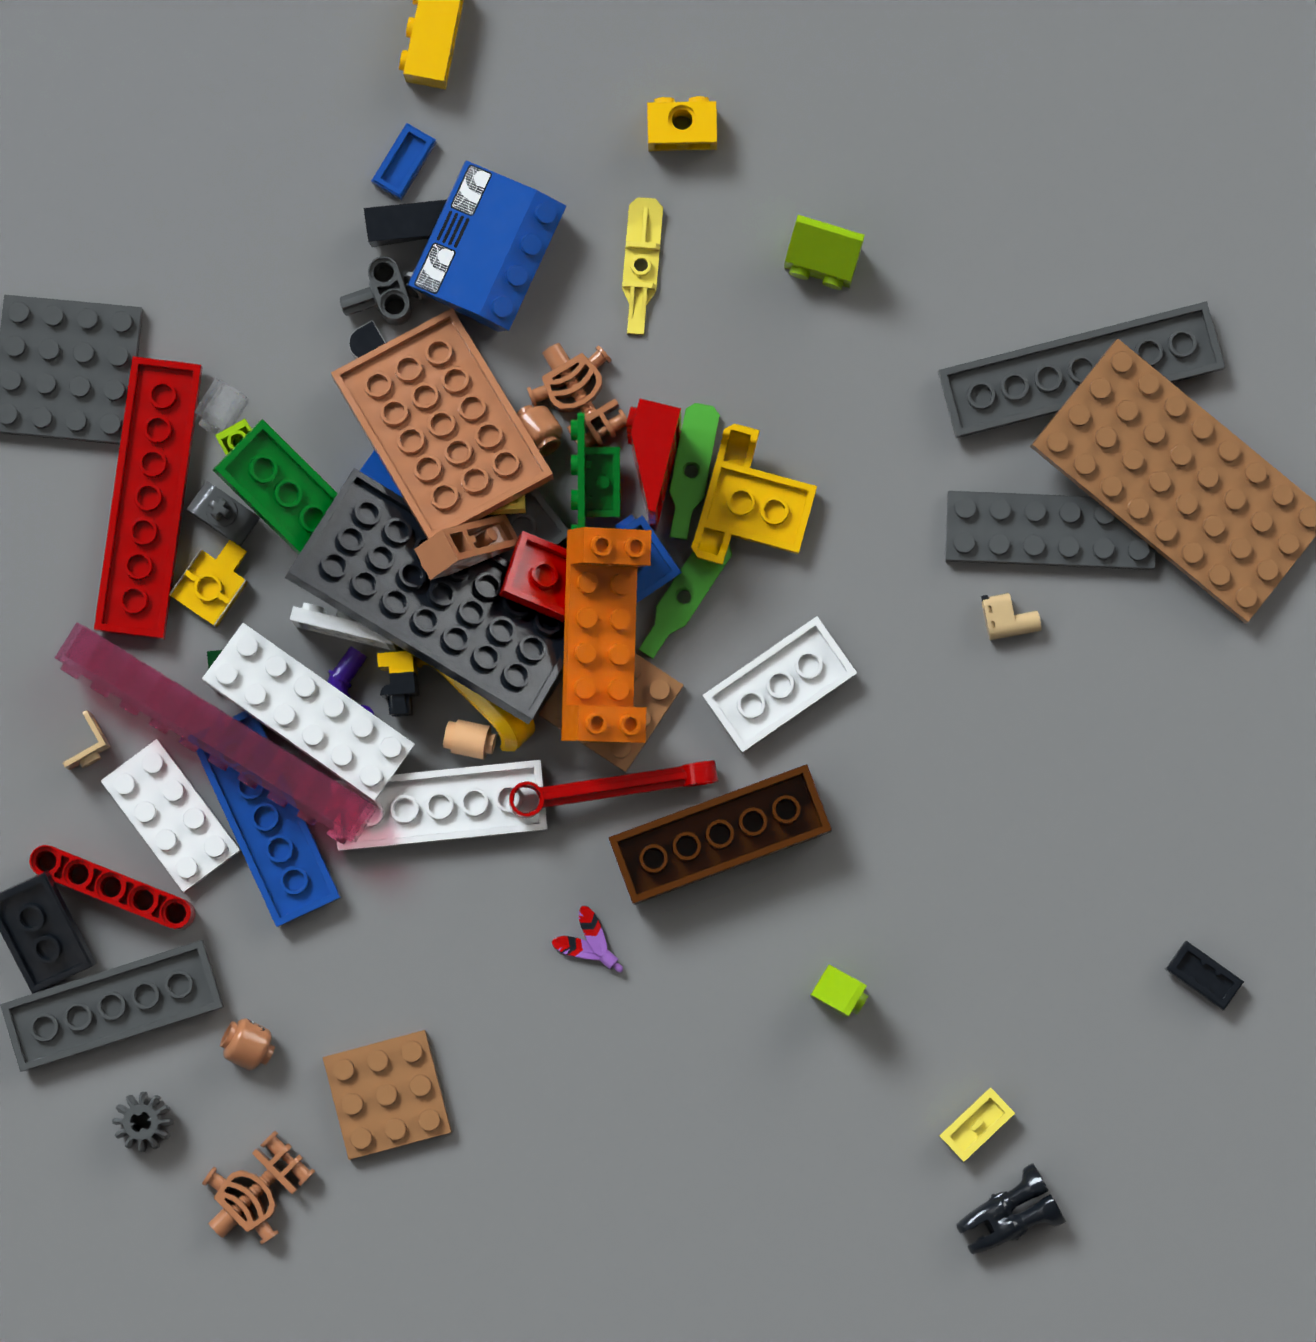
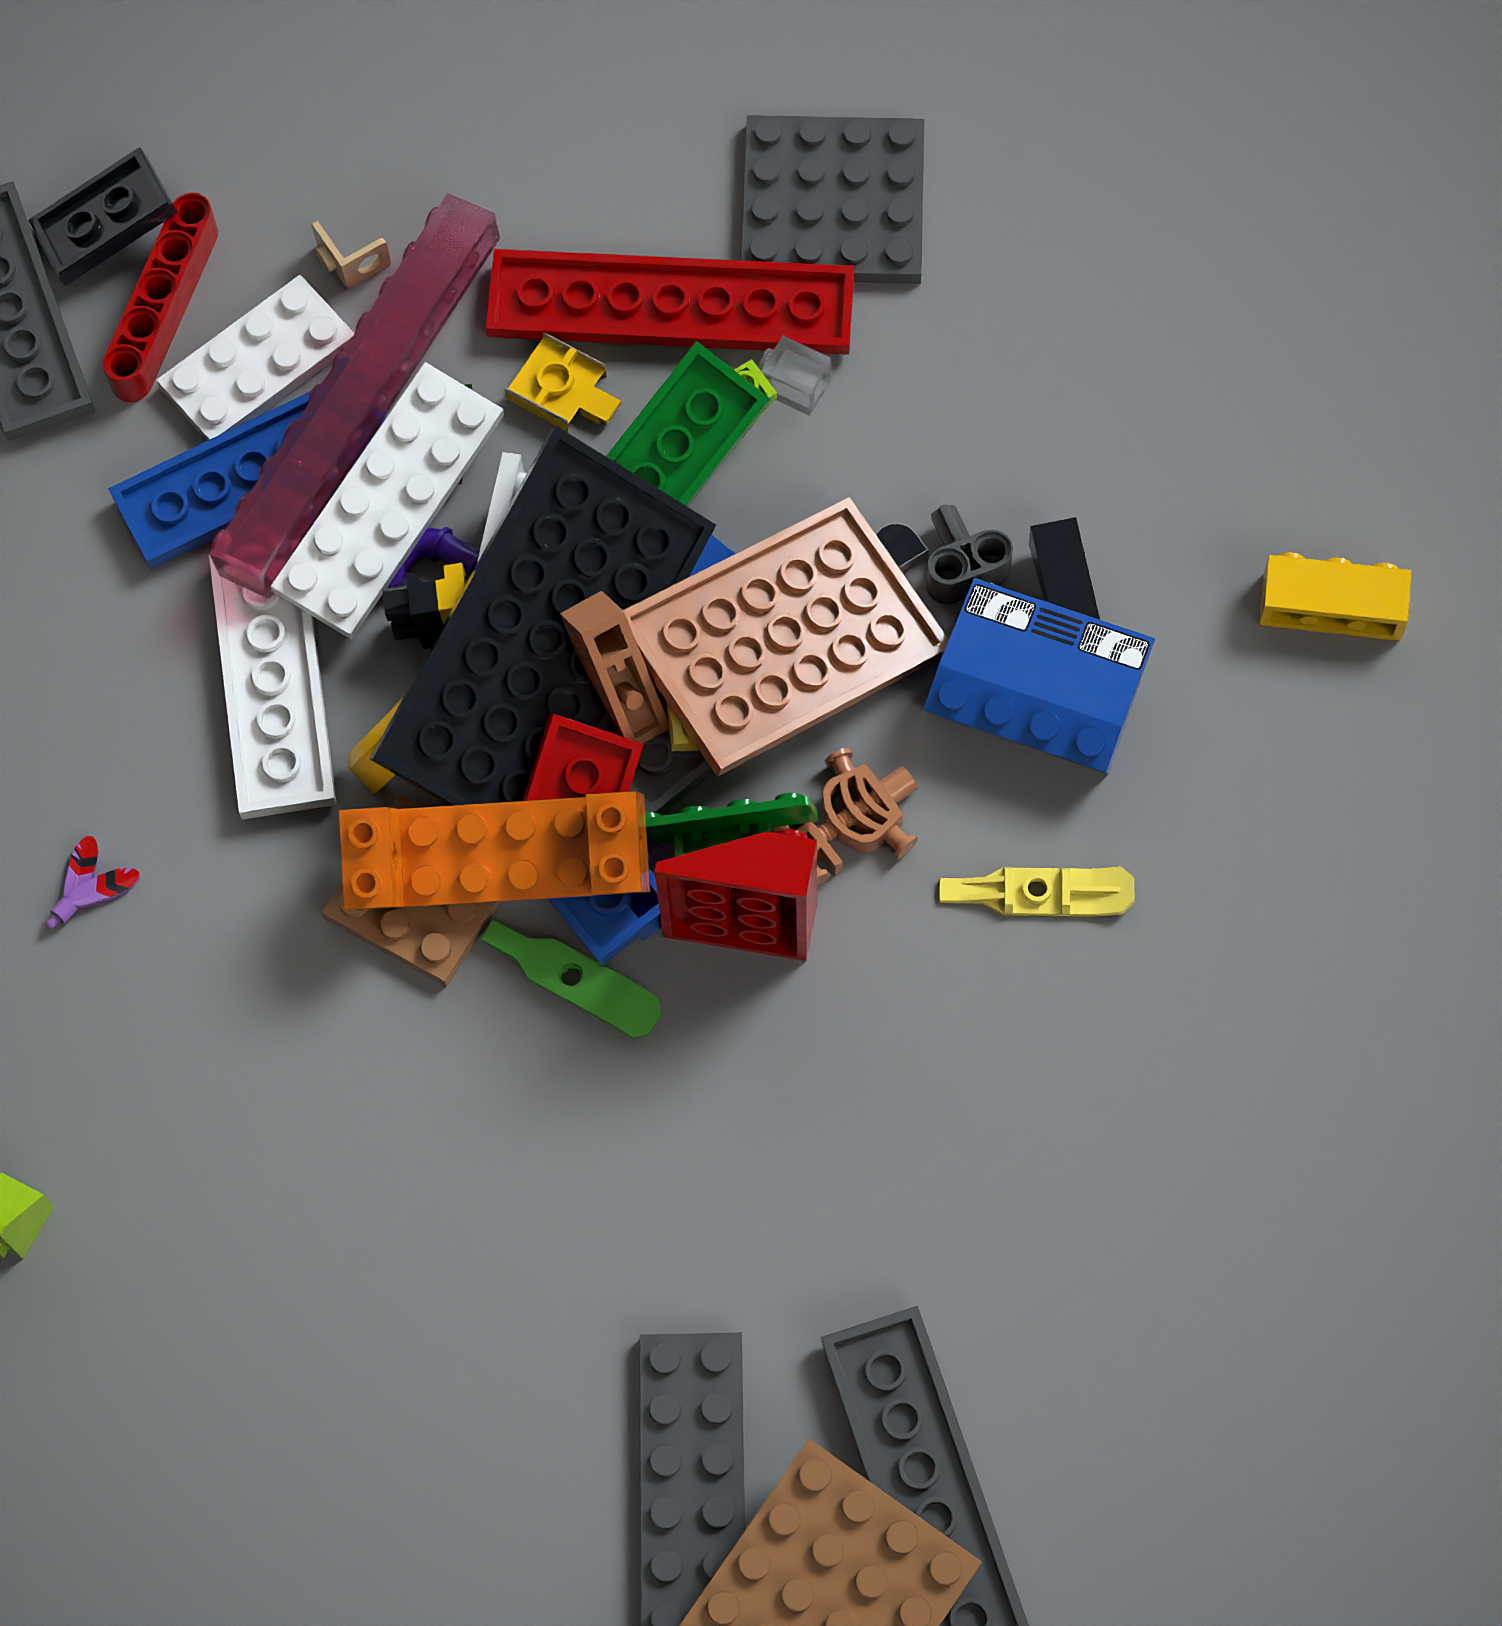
camera: 85 degrees right, 15 degrees down
(223, 513) = (644, 381): dark grey beam -> none
(404, 161) = (1151, 577): blue tile -> none
(469, 739) = (361, 705): light nougat brick -> none
(542, 428) = (791, 765): nougat head -> none
(628, 784) = (314, 990): red piece -> none
(666, 137) = (1235, 954): yellow brick -> none
(694, 449) = (781, 975): bright green piece -> none
(720, 834) = (230, 1038): reddish brown brick -> none
(749, 502) = (703, 1051): yellow piece -> none
(779, 684) = (449, 1111): white plate -> none
(823, 252) = (1074, 1128): lime slope -> none
(1001, 619) = (554, 1422): tan piece -> none

